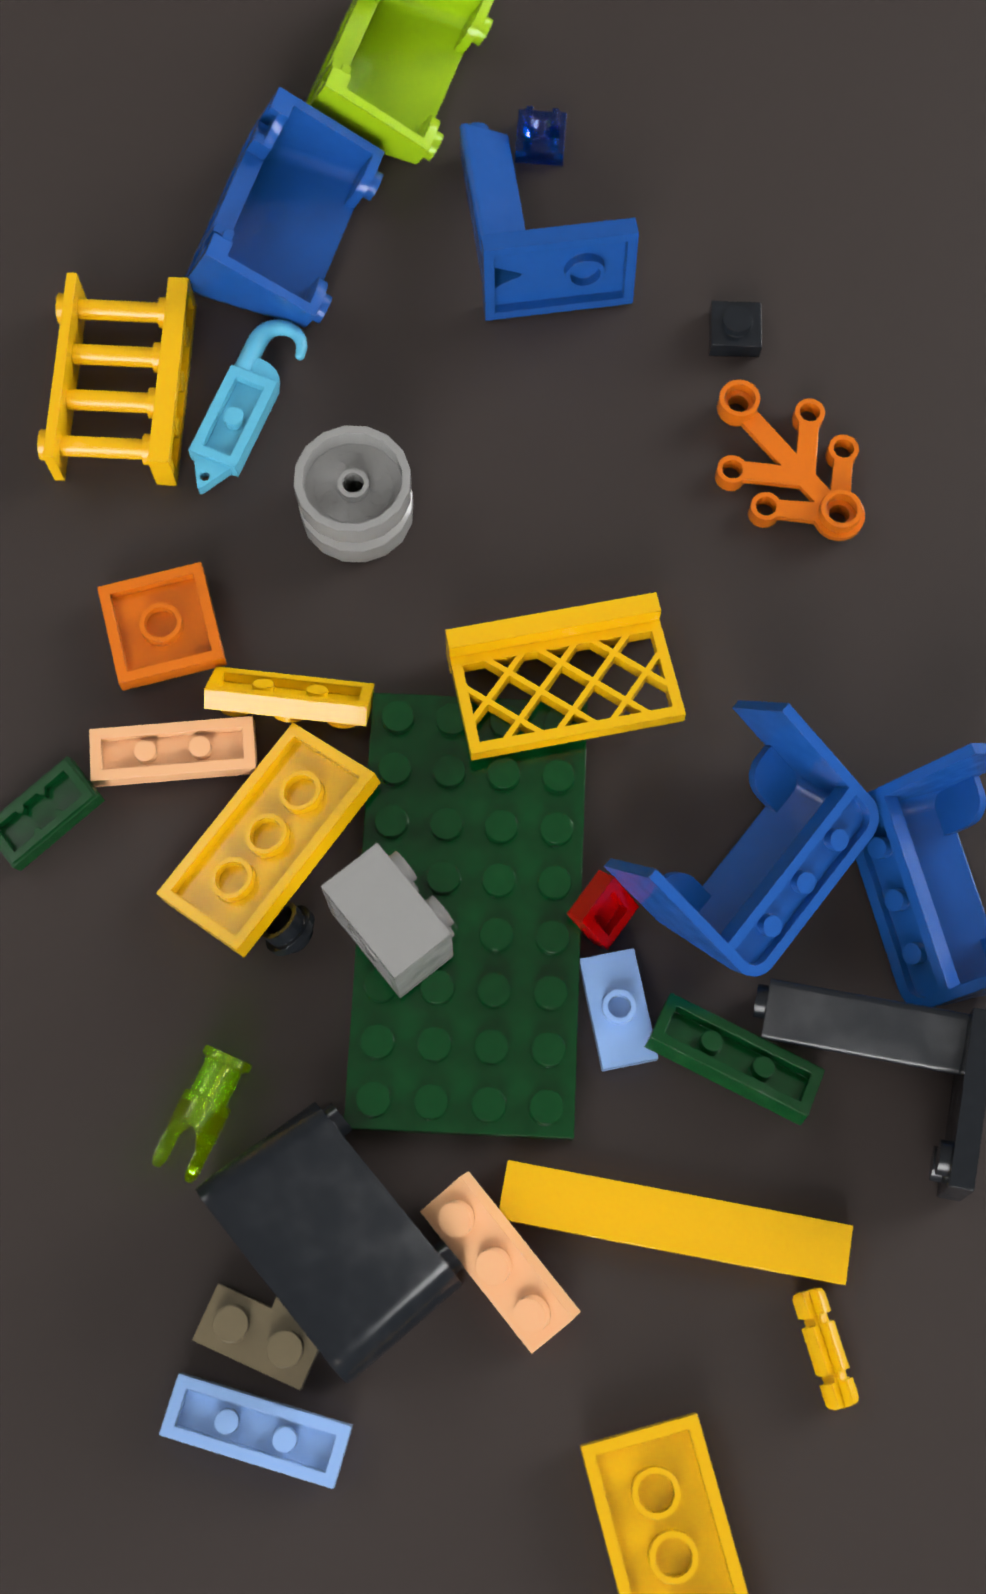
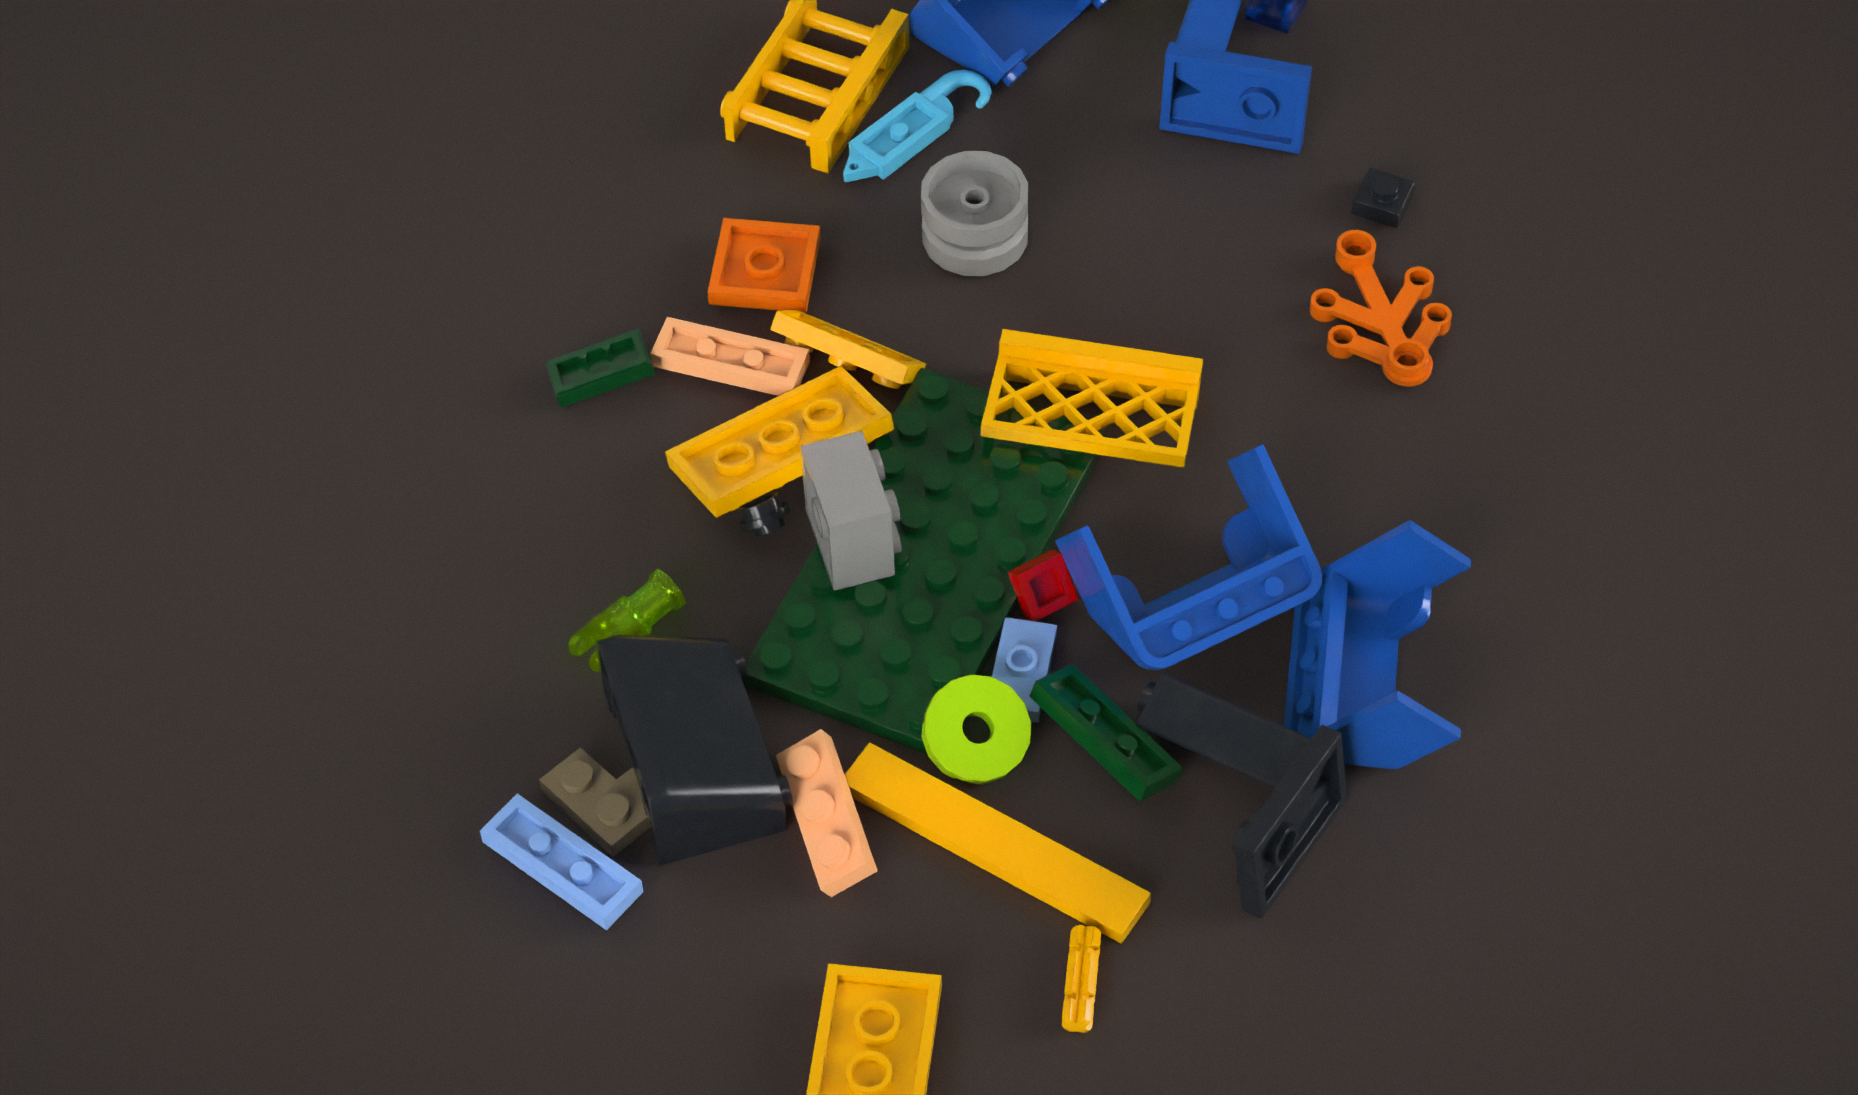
camera: 25 degrees right, 20 degrees down
(640, 1115) = (1002, 712): none -> lime tile

